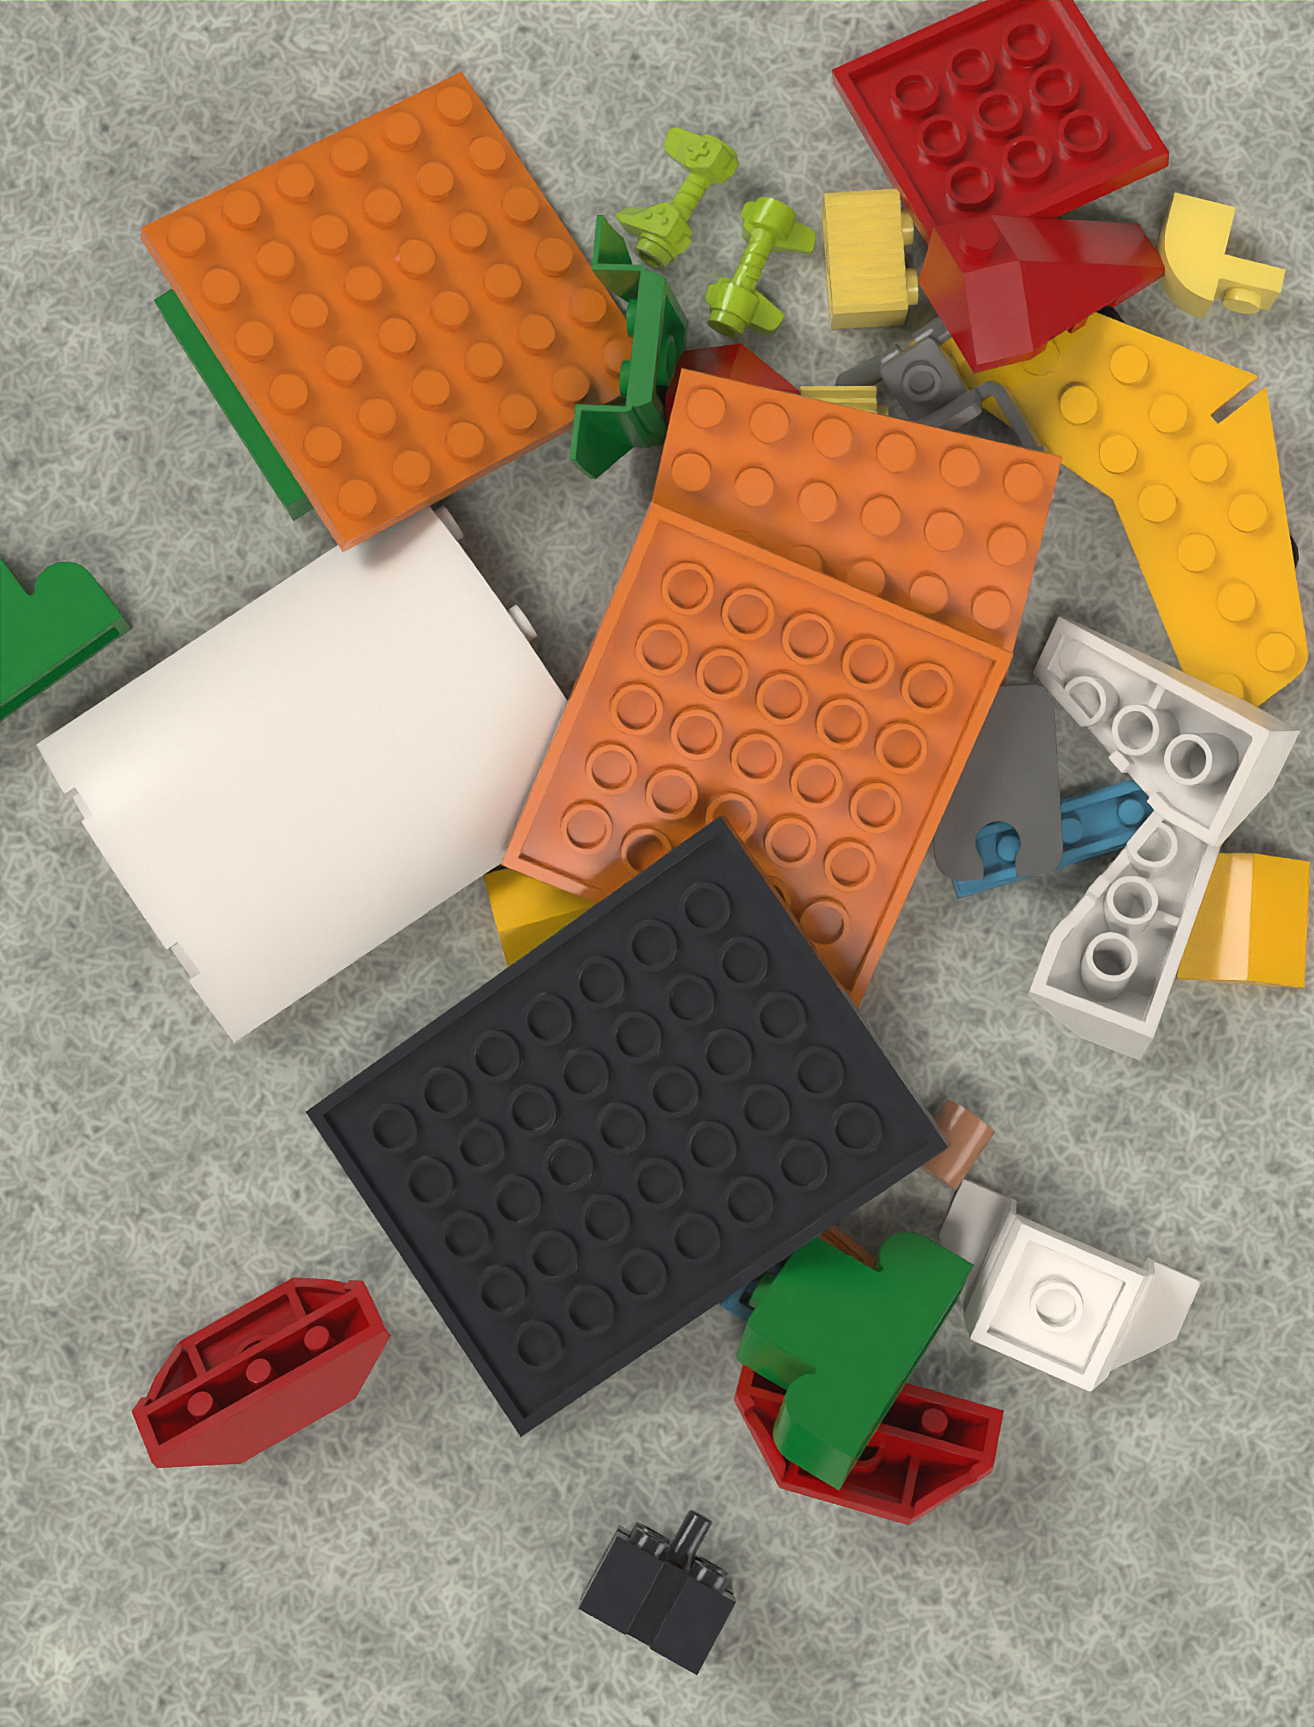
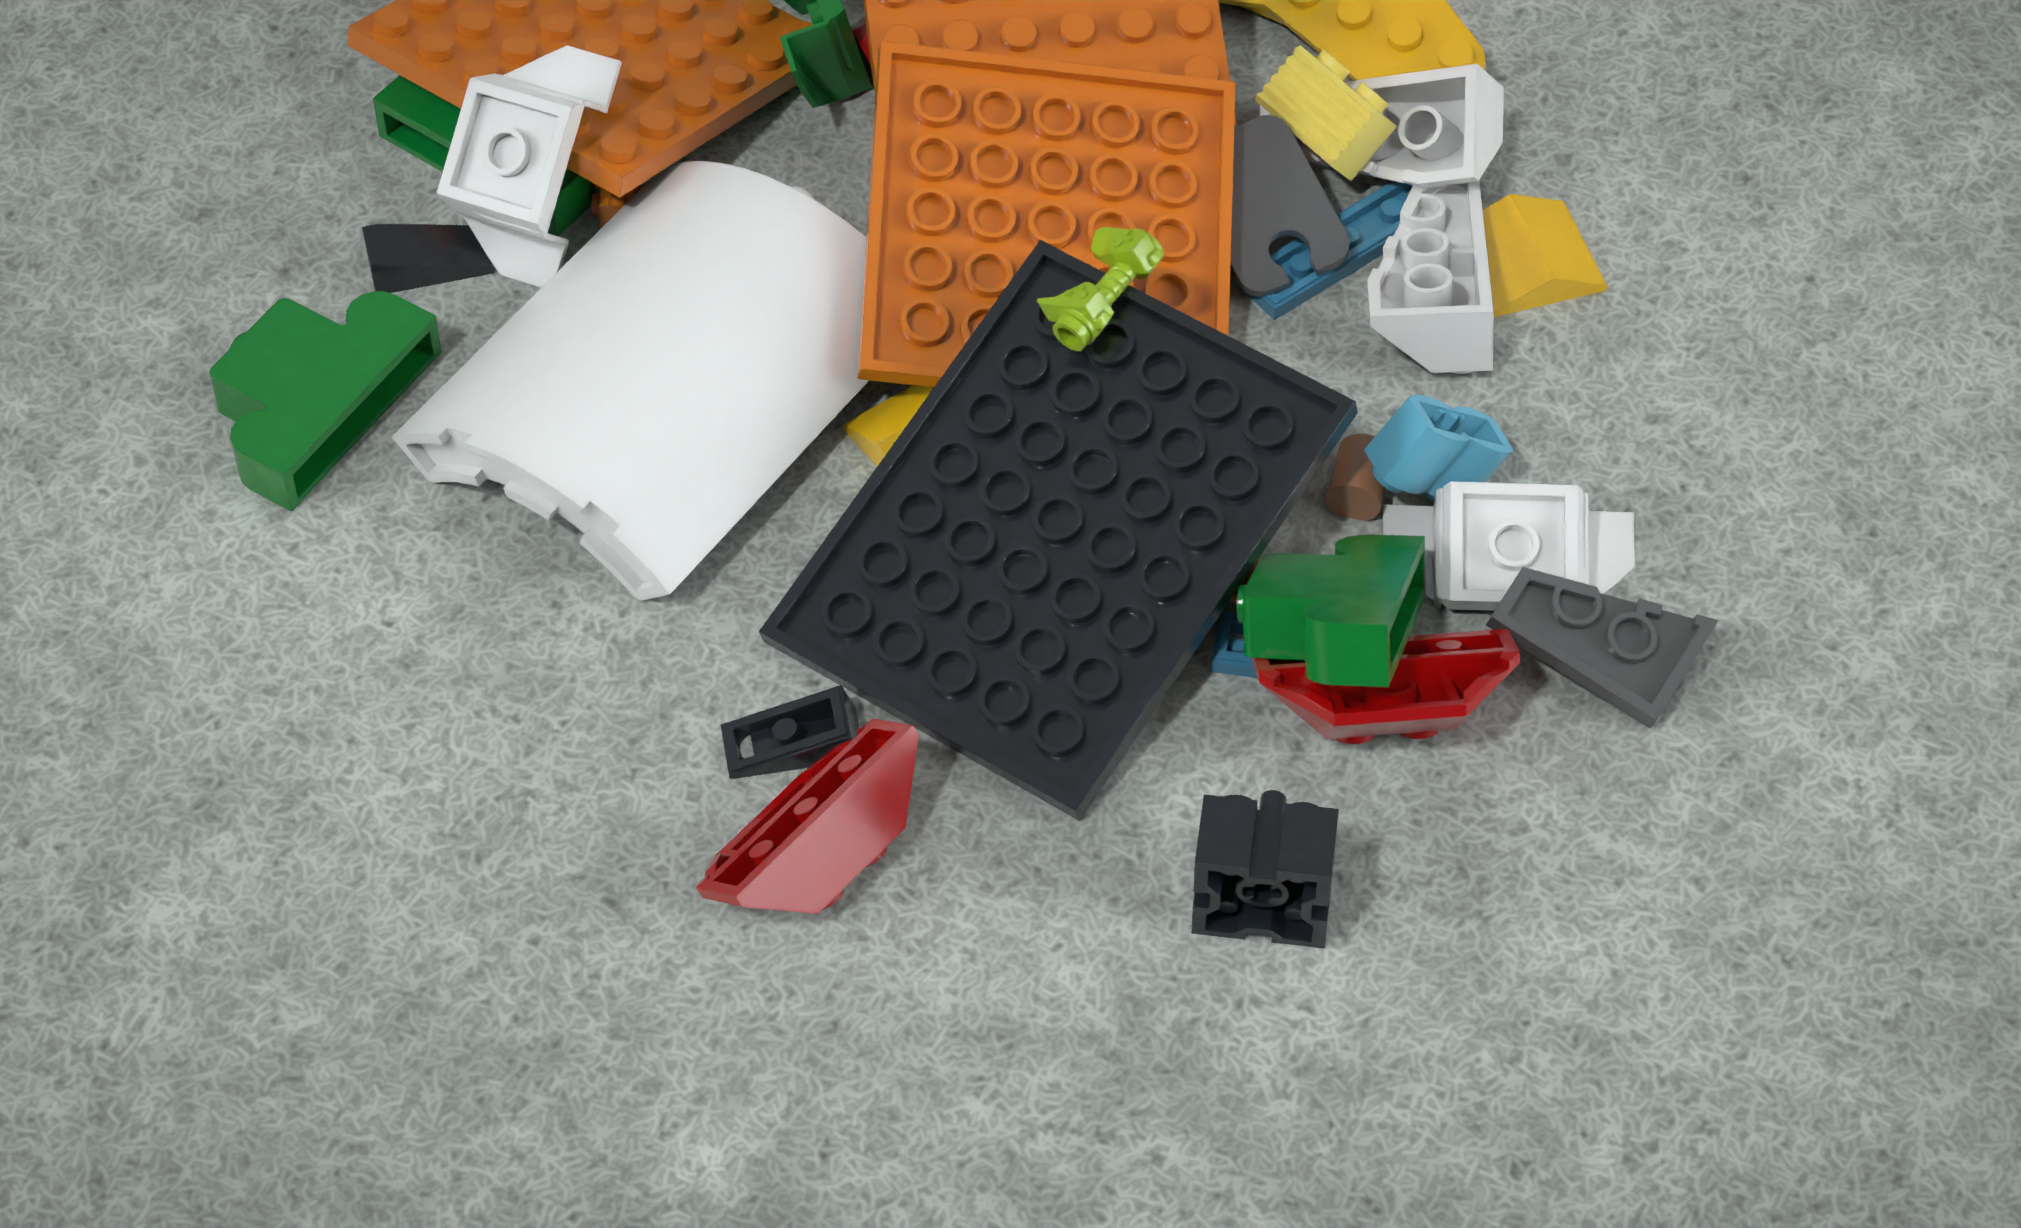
camera: 20 degrees left, 30 degrees down
(152, 503) = (422, 255): none -> black slope
(263, 450) = (515, 153): none -> white piece
(300, 1236) = (790, 733): none -> black slope
(725, 936) = (1087, 307): none -> lime piece
(1030, 1171) = (1435, 444): none -> medium azure brick
(1096, 1444) = (1604, 643): none -> dark grey wing
(1103, 698) = (1326, 112): none -> light yellow brick

